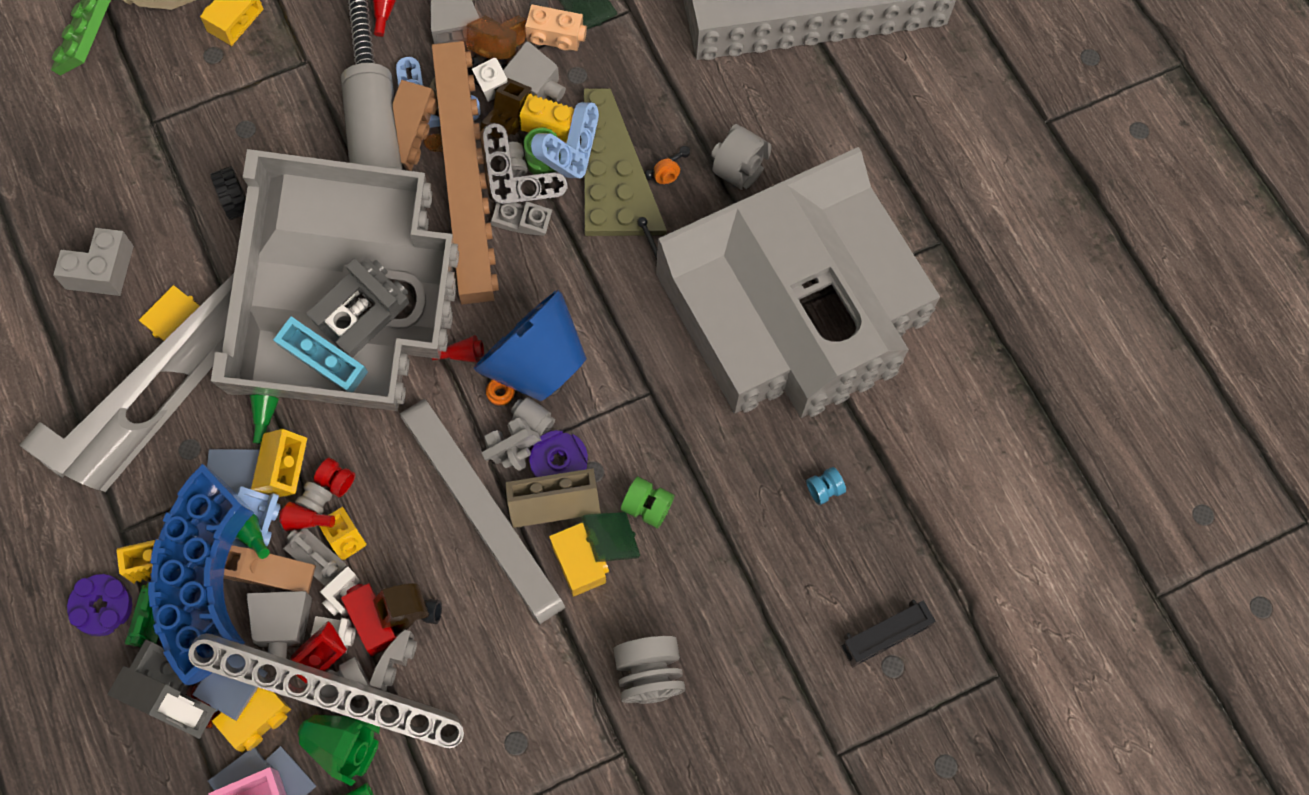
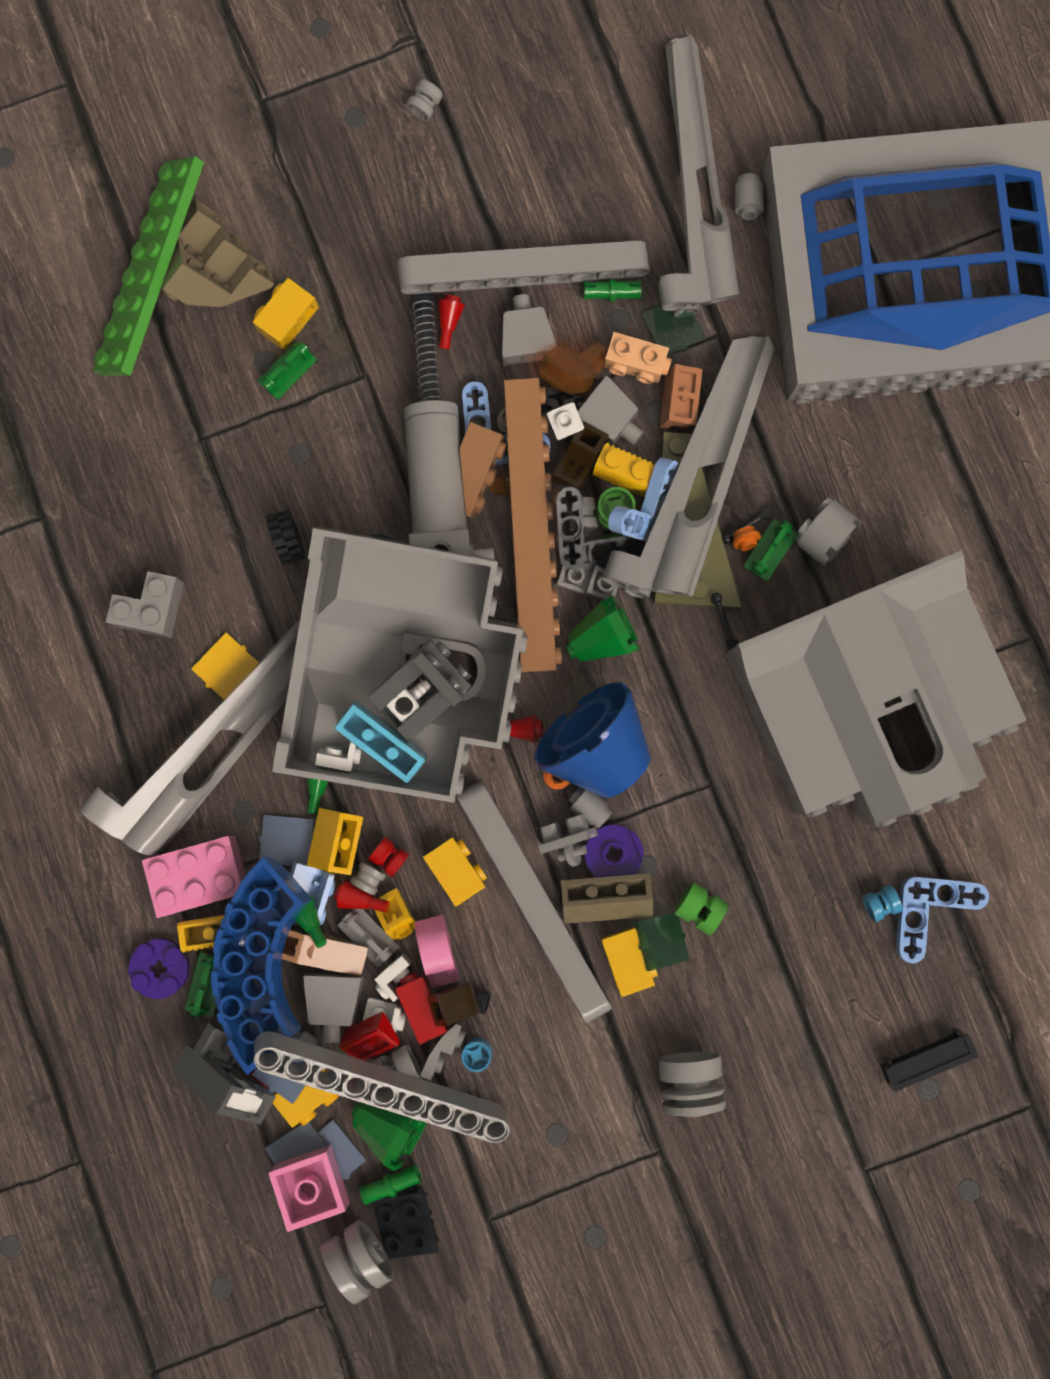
camera: 10 degrees right, 15 degrees up
(132, 507) = (194, 875): none -> bright pink brick
(233, 58) = (287, 370): none -> green hinge
(276, 374) = (335, 758): none -> white bracket
(383, 559) = (436, 951): none -> bright pink brick
(401, 485) = (455, 870): none -> yellow brick
(426, 658) = (473, 1057): none -> dark azure wheel
(536, 259) = (603, 634): none -> green cone
(597, 57) = (680, 397): none -> nougat hinge
(599, 174) = (677, 544): none -> light grey panel
(691, 180) = (771, 549): none -> green hinge
(865, 485) = (921, 906): none -> light blue beam

